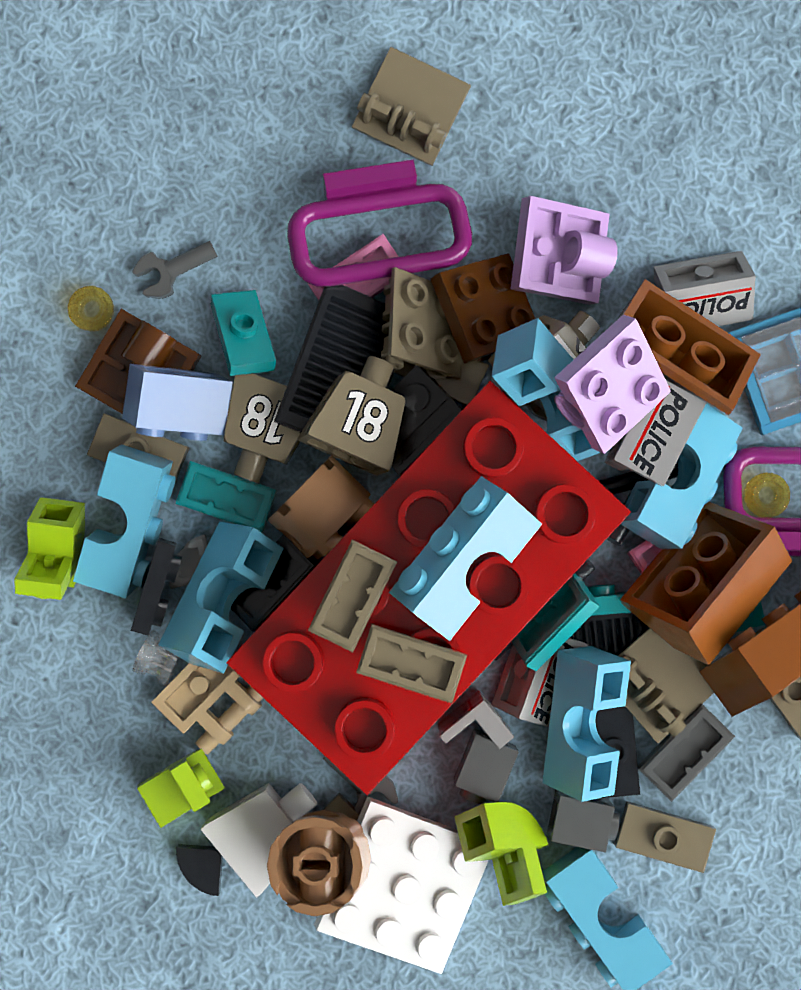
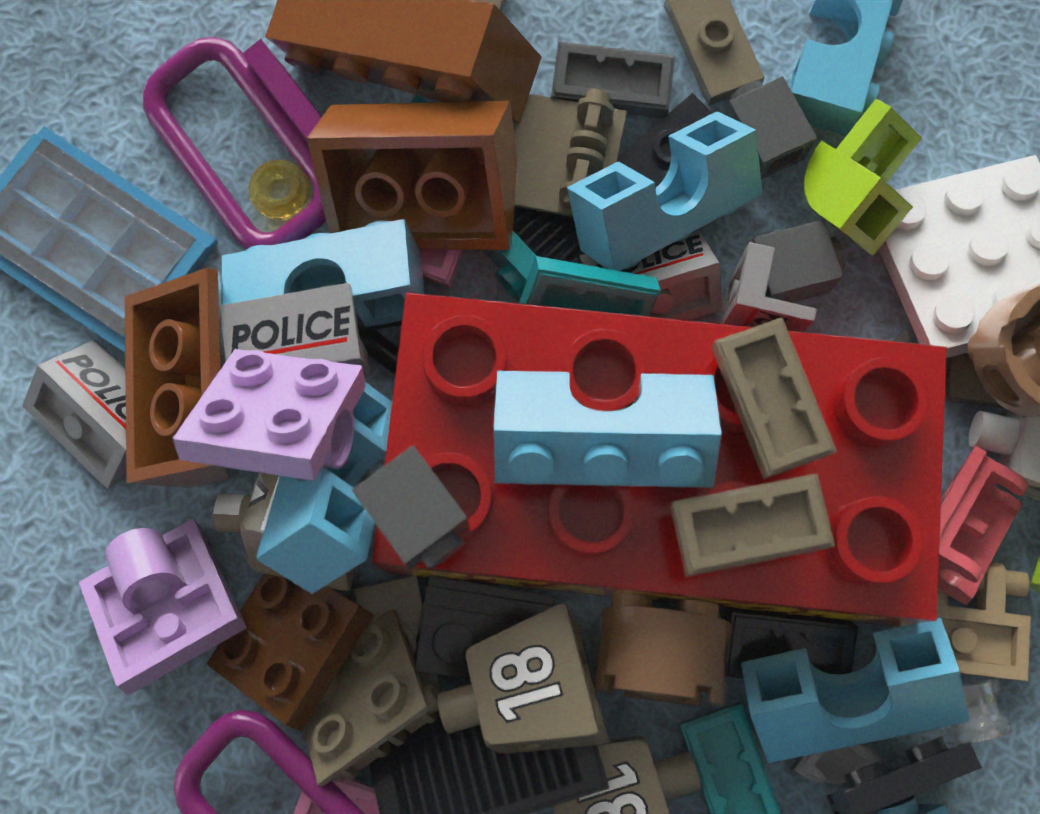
camera: 130 degrees left, 10 degrees down
(258, 741) = (975, 522): none -> coral hinge
(497, 419) = (413, 510): none -> dark grey brick

